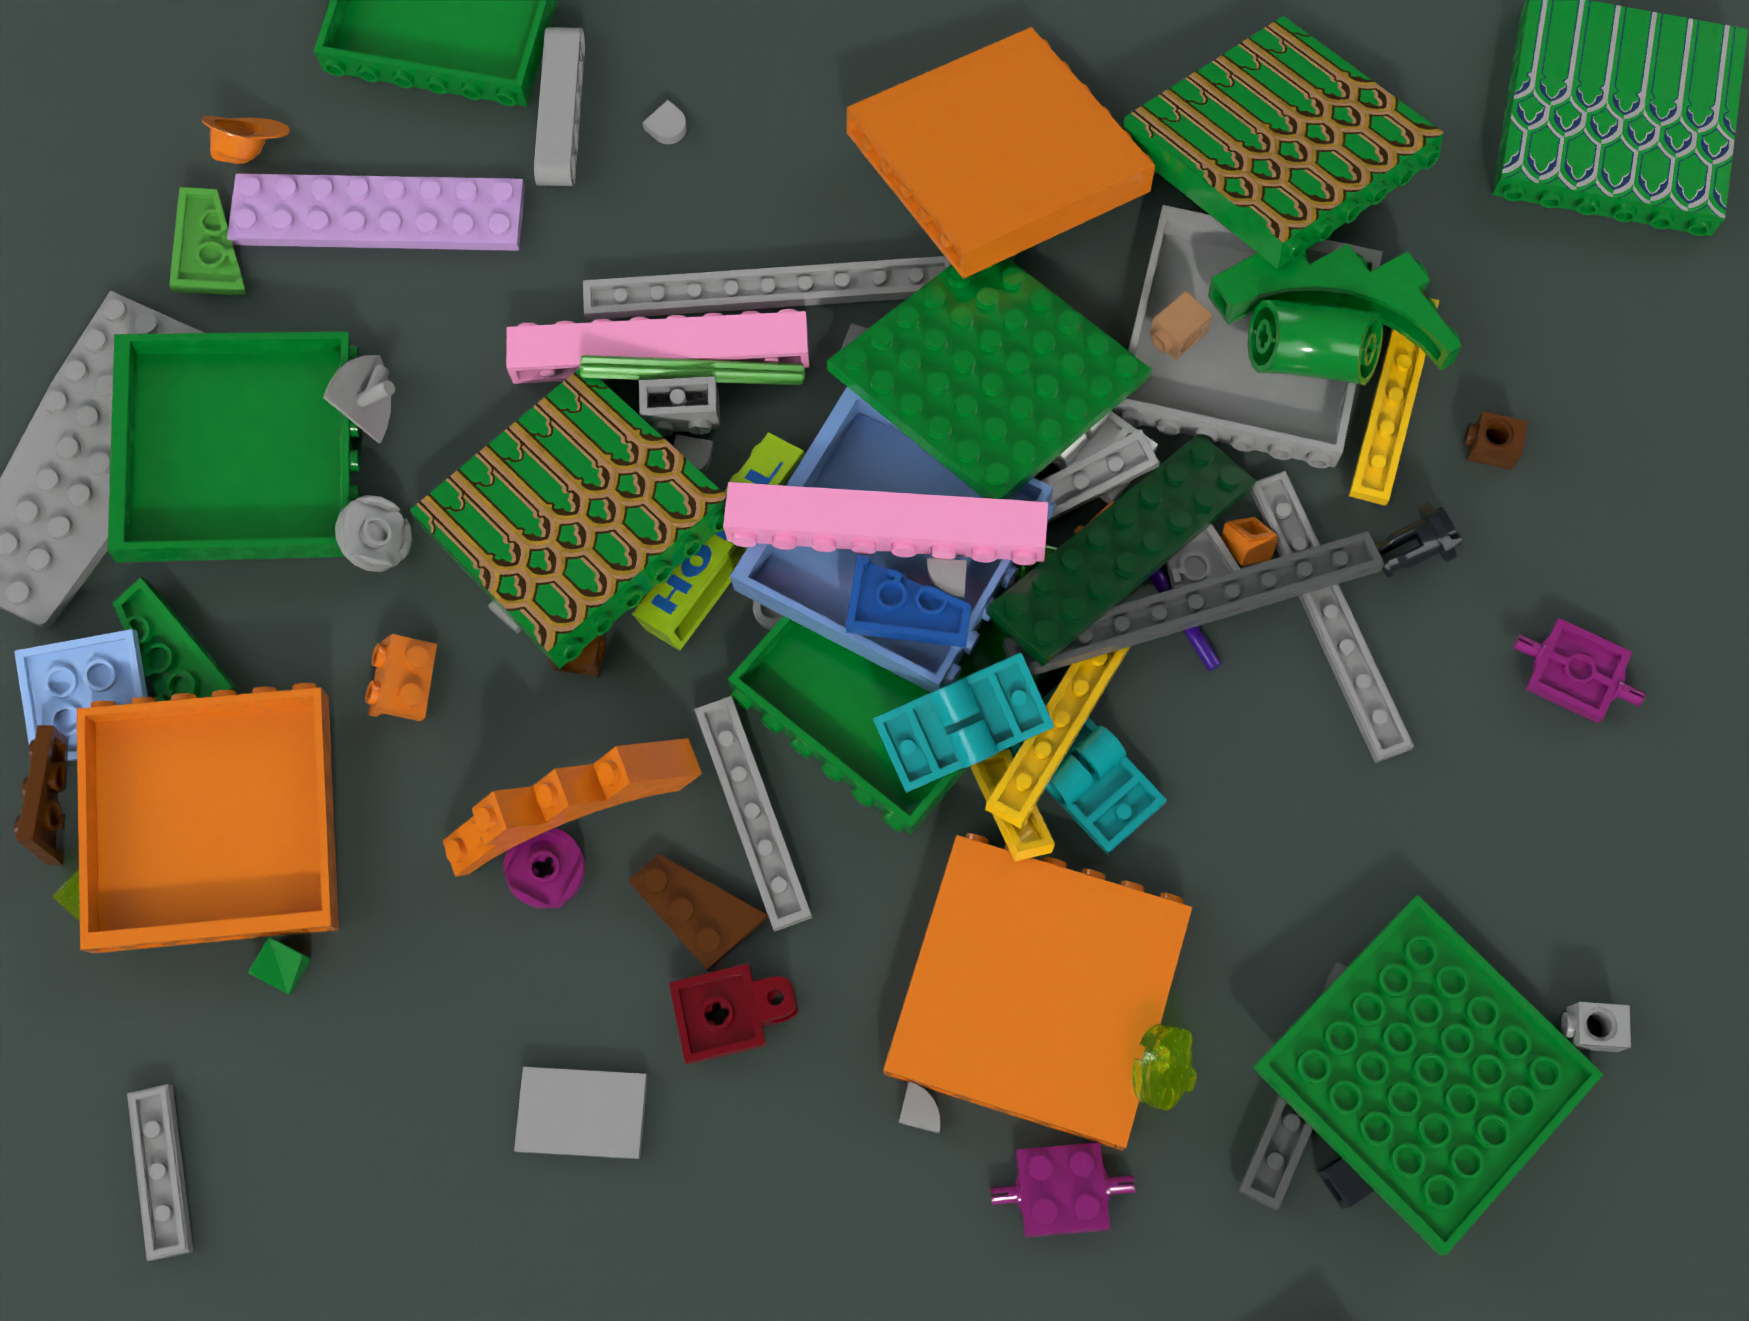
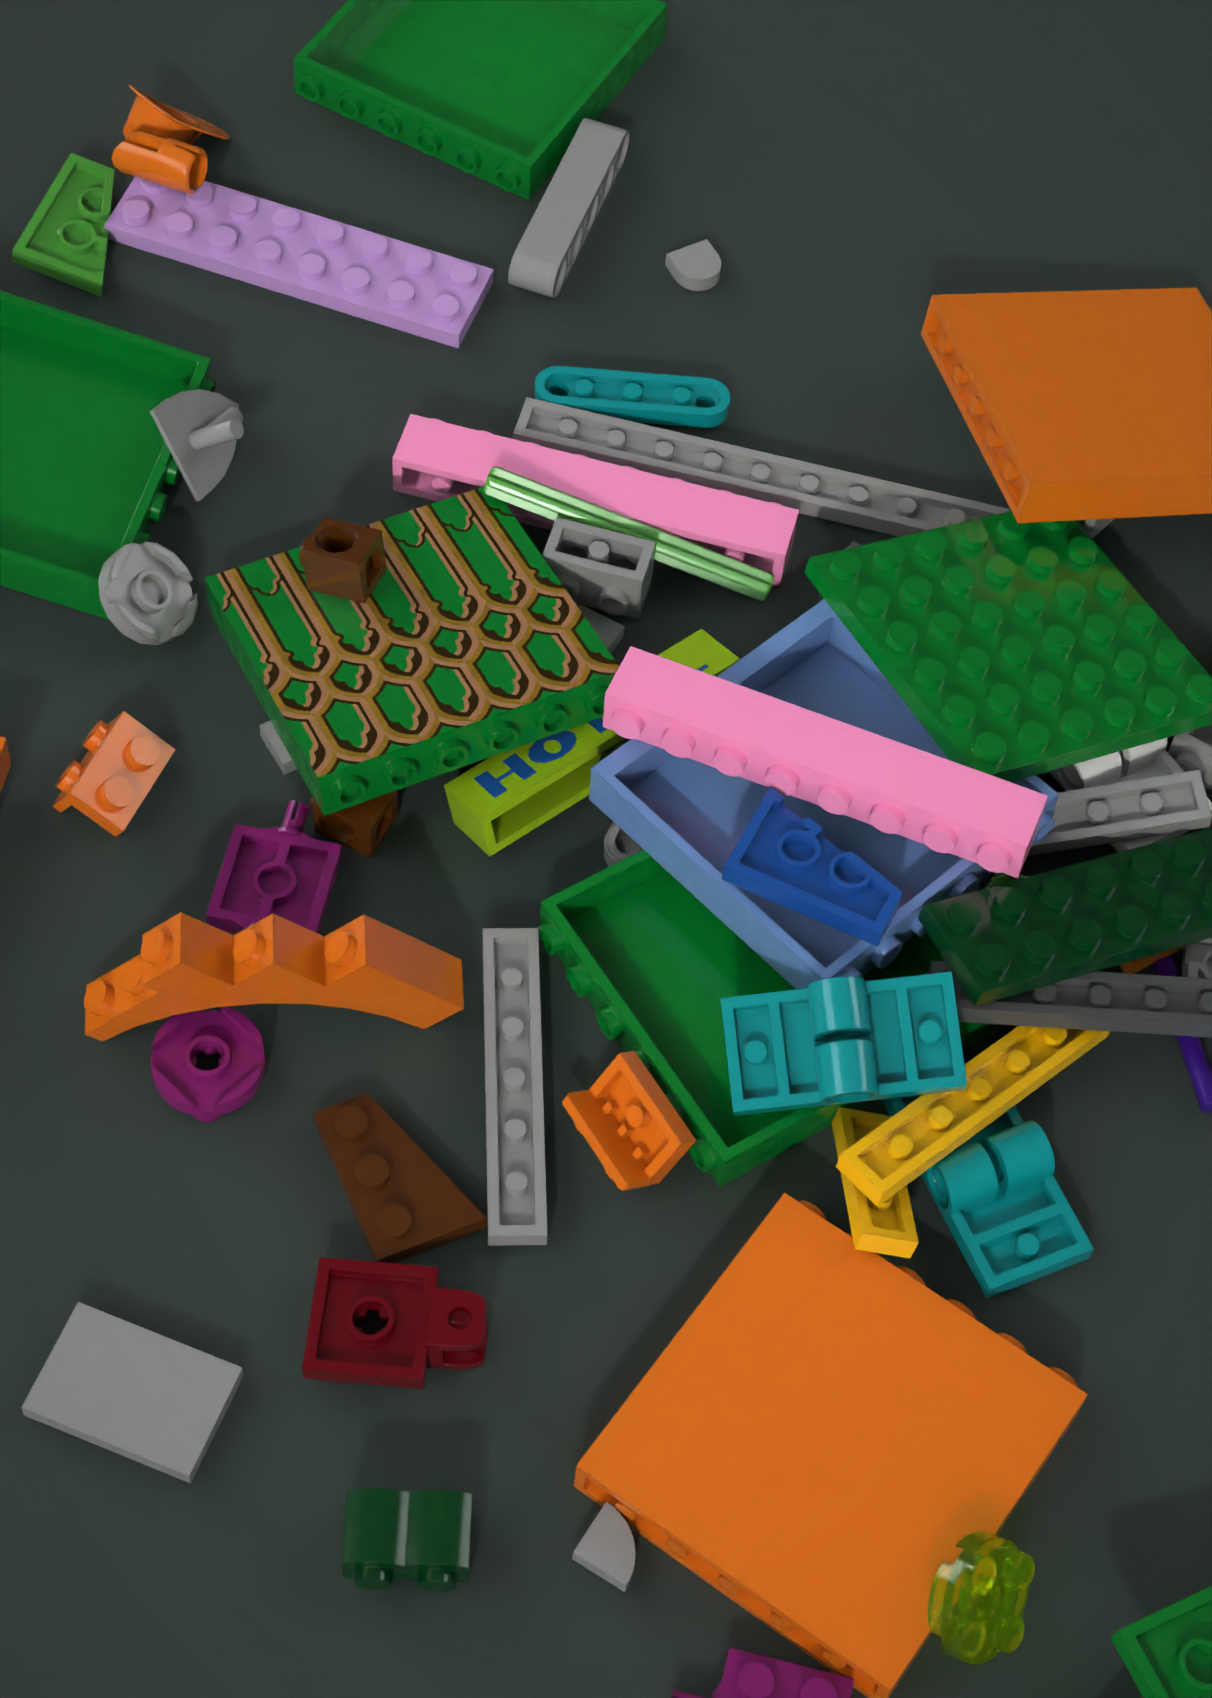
camera: 10 degrees right, 15 degrees down
(250, 174) = (161, 160): none -> orange arm
(503, 469) = (343, 559): none -> reddish brown brick
(542, 722) = (275, 874): none -> magenta plate
(658, 251) = (636, 395): none -> teal plate
(791, 1150) = (407, 1537): none -> dark green brick
(838, 818) = (630, 1124): none -> orange bracket
(948, 575) = (884, 851): light grey tile -> none

